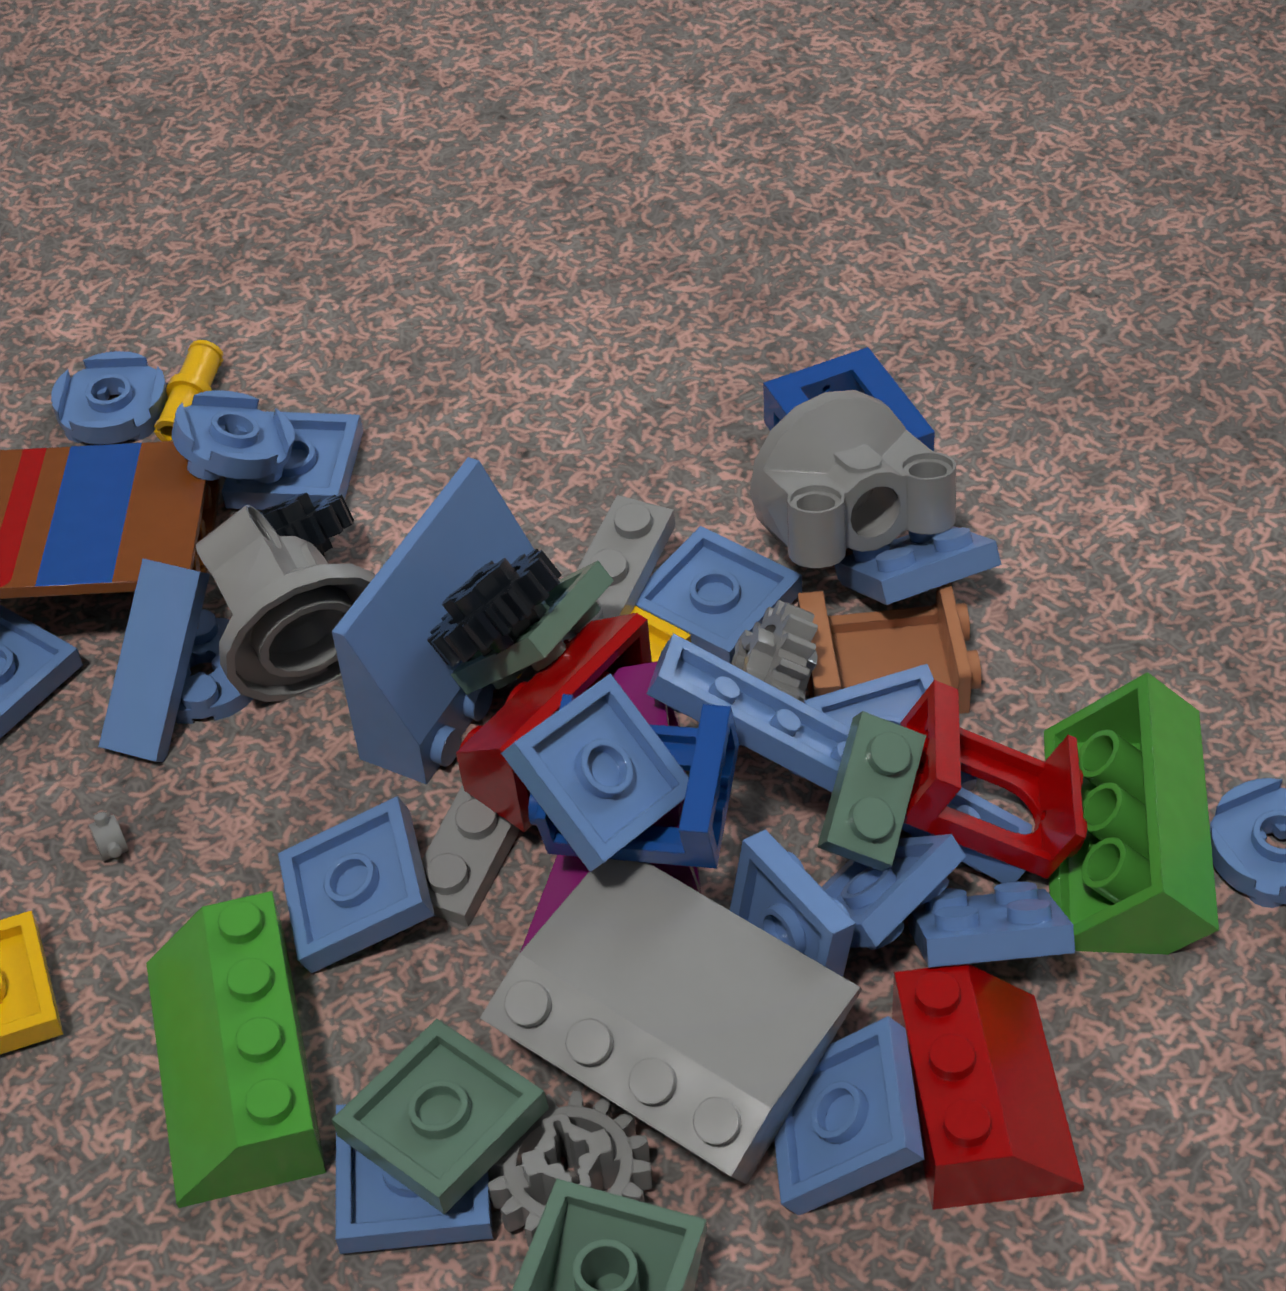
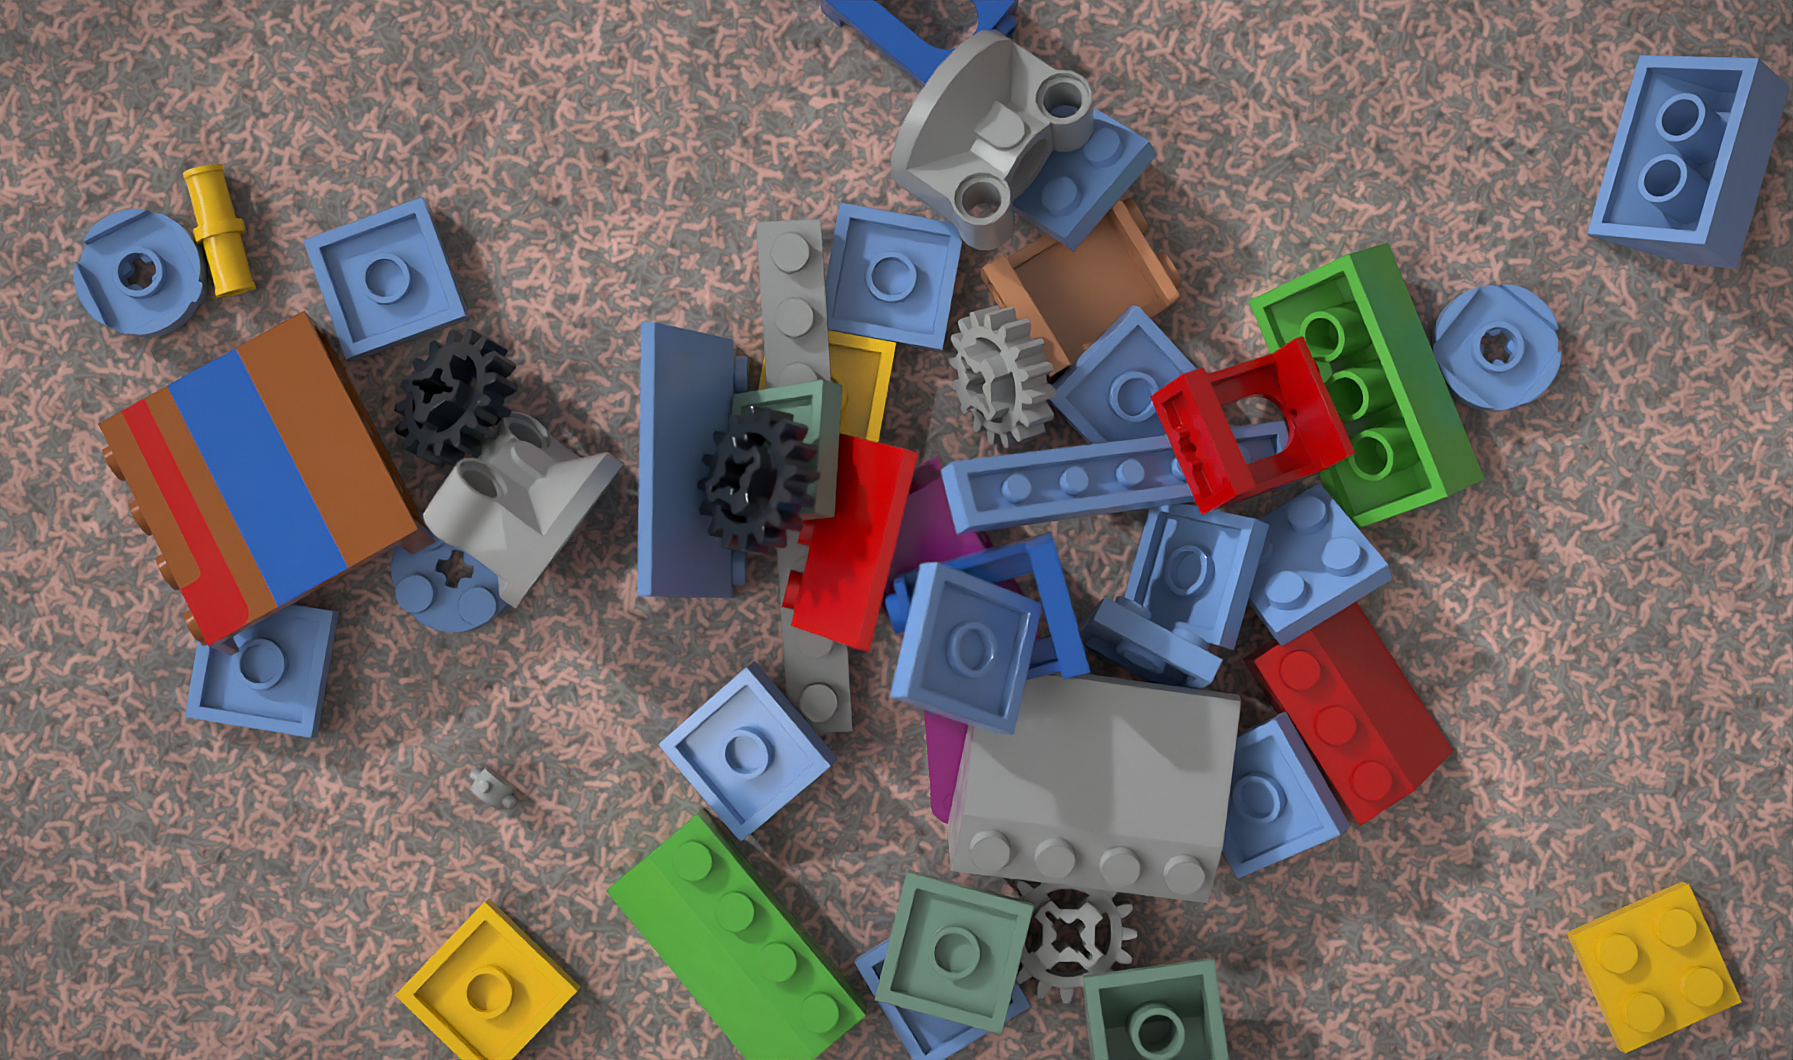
camera: 30 degrees left, 40 degrees up
(154, 660) = (429, 612): medium blue tile -> none
(232, 437) = (323, 346): medium blue plate -> none
(872, 791) = (1172, 507): sand green plate -> none

